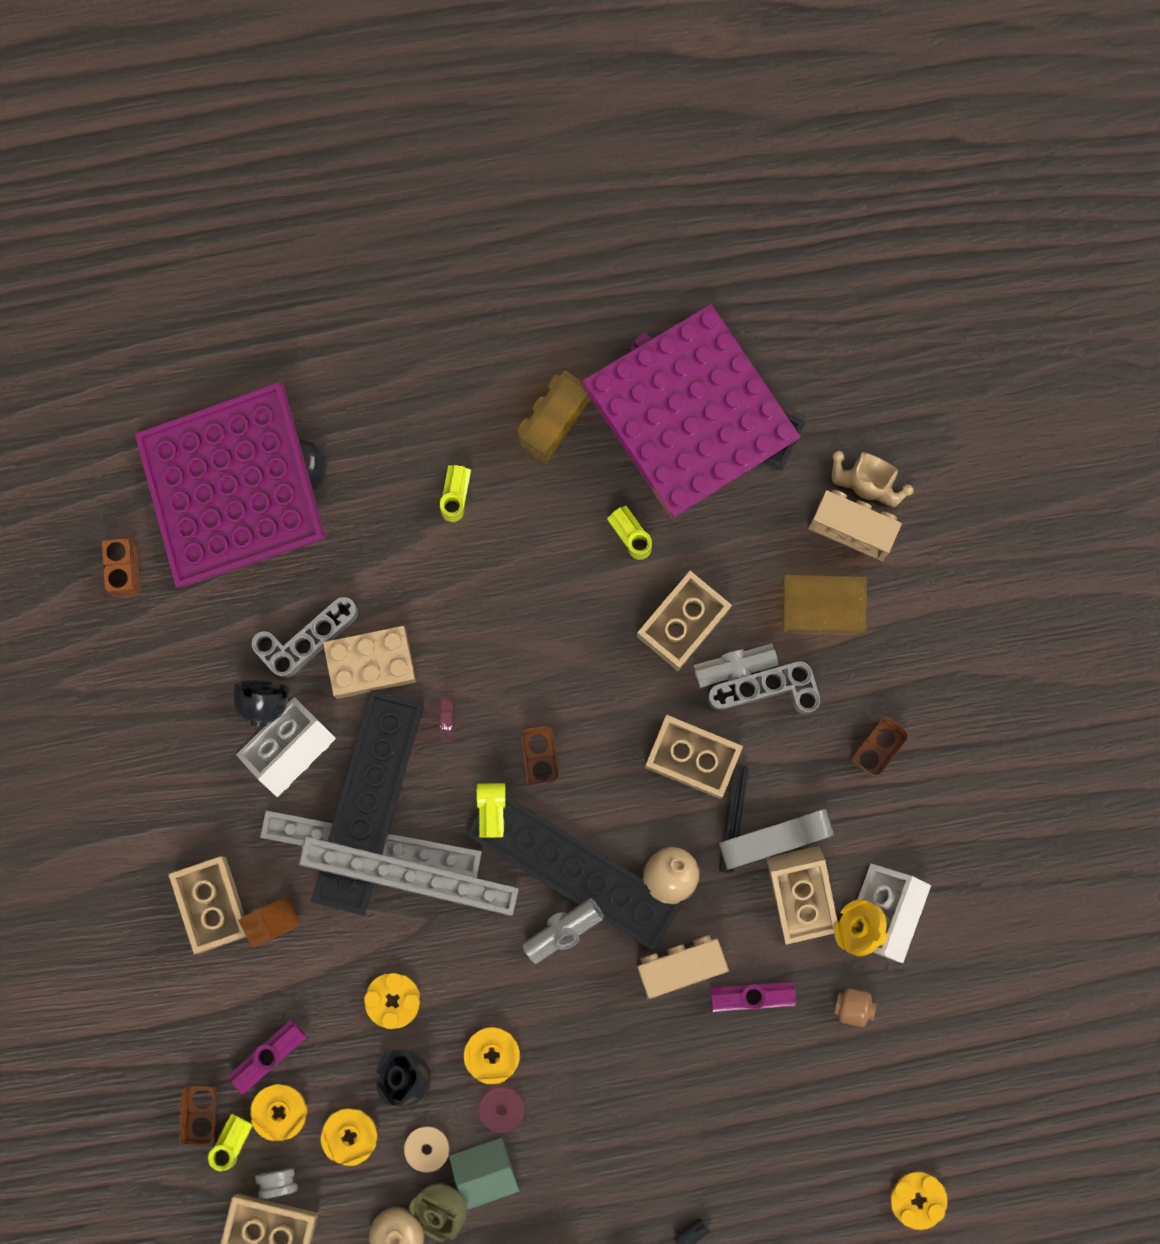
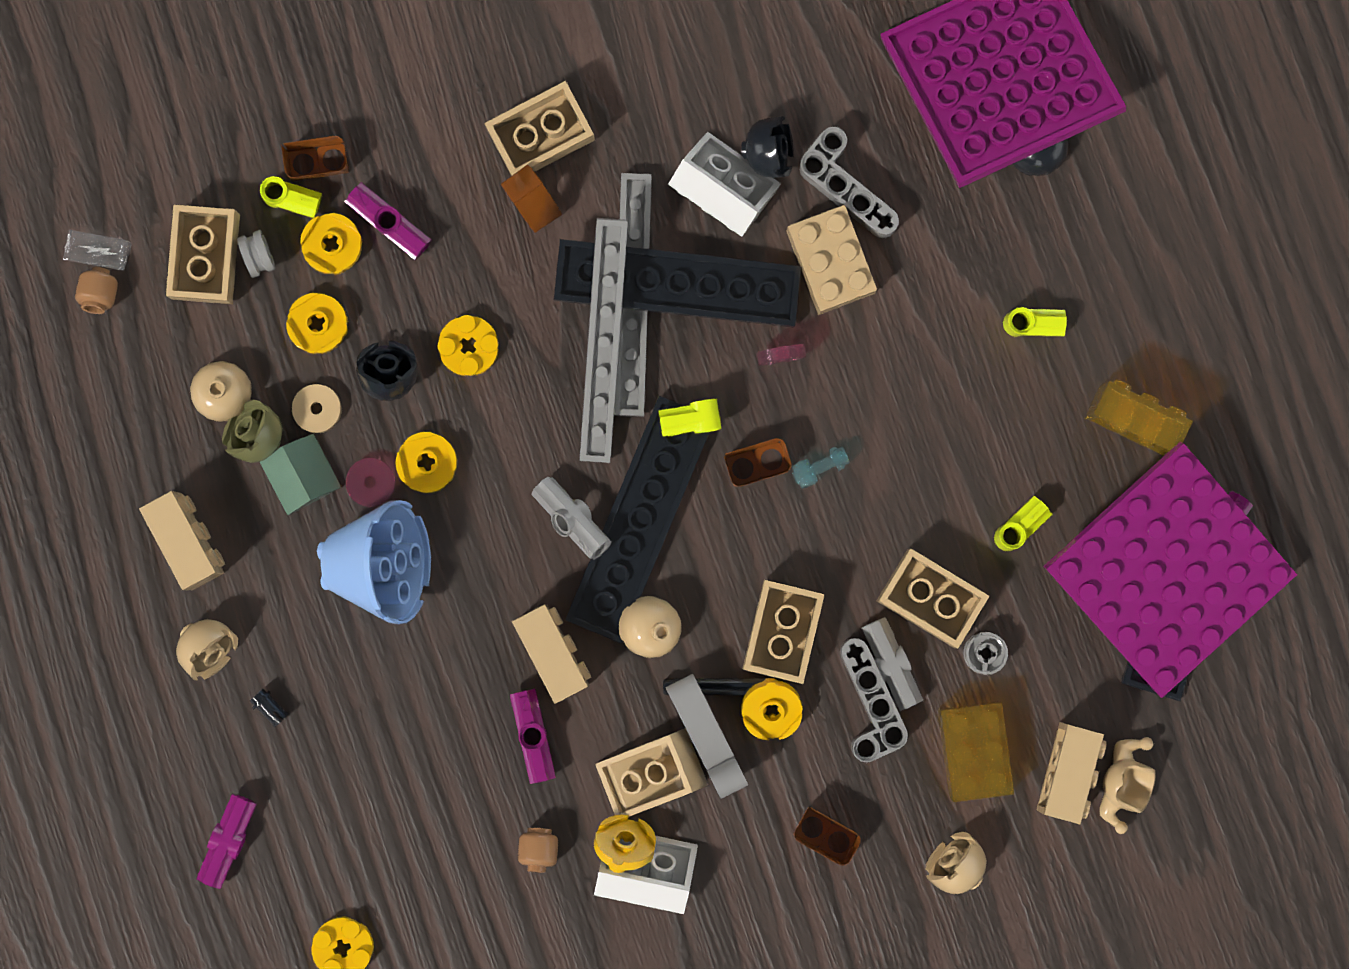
camera: 80 degrees right, 5 degrees up
(555, 715) = (806, 473): none -> clear light blue bar
(576, 1112) = (379, 562): none -> light blue cone
(728, 587) = (998, 650): none -> light grey wheel
(746, 778) = (771, 693): none -> yellow plate
(921, 636) = (958, 865): none -> tan cylinder

